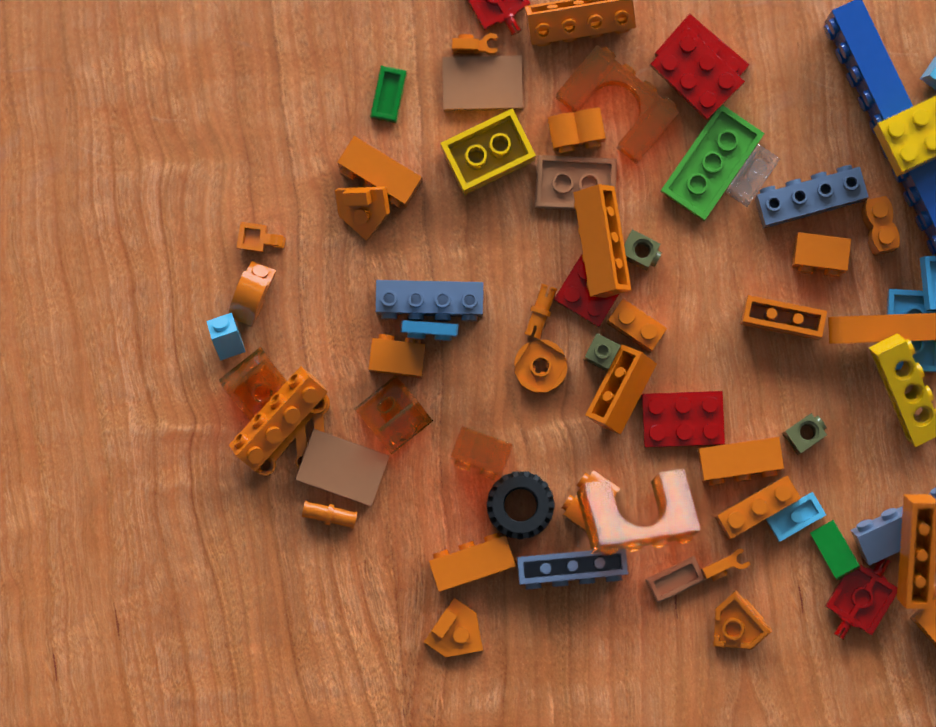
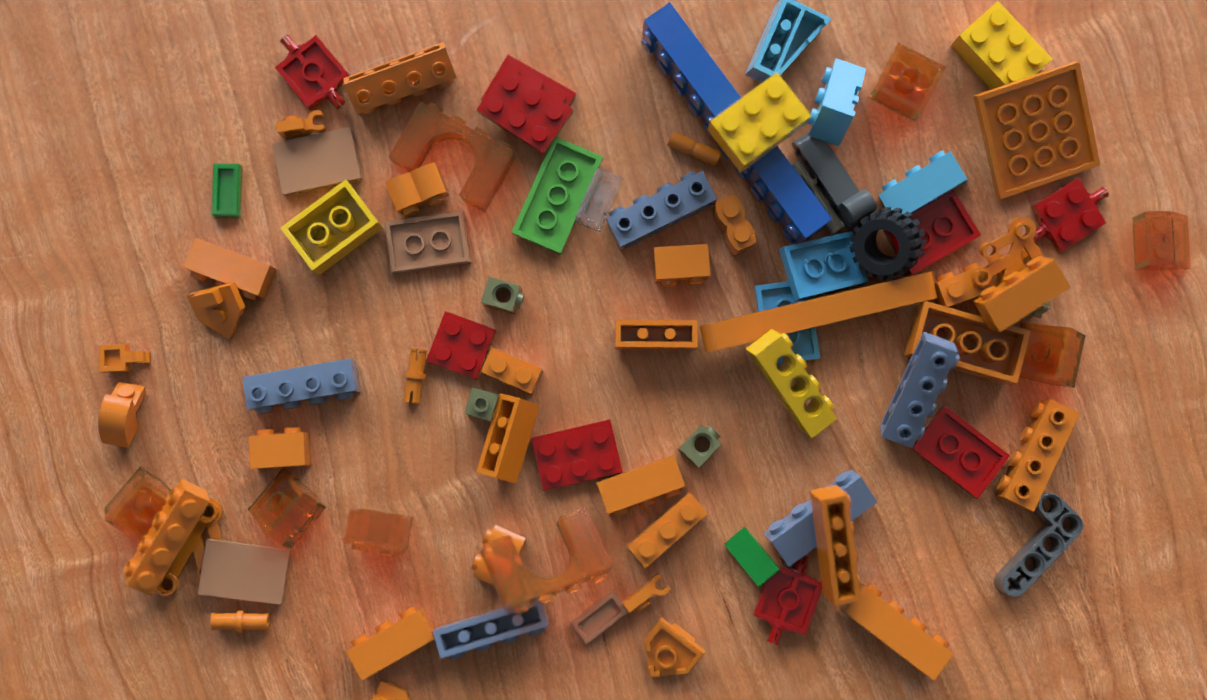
camera: 15 degrees left, 0 degrees up
(226, 336) = (102, 463): medium azure brick -> none
(419, 329) = (307, 417): dark azure plate -> none
(543, 497) = (406, 582): black tyre -> none
(555, 362) = (419, 416): orange plate -> none
(602, 241) = (460, 300): orange brick -> none
(795, 517) = (707, 531): medium azure plate -> none
(858, 144) = (691, 147): none -> orange piece

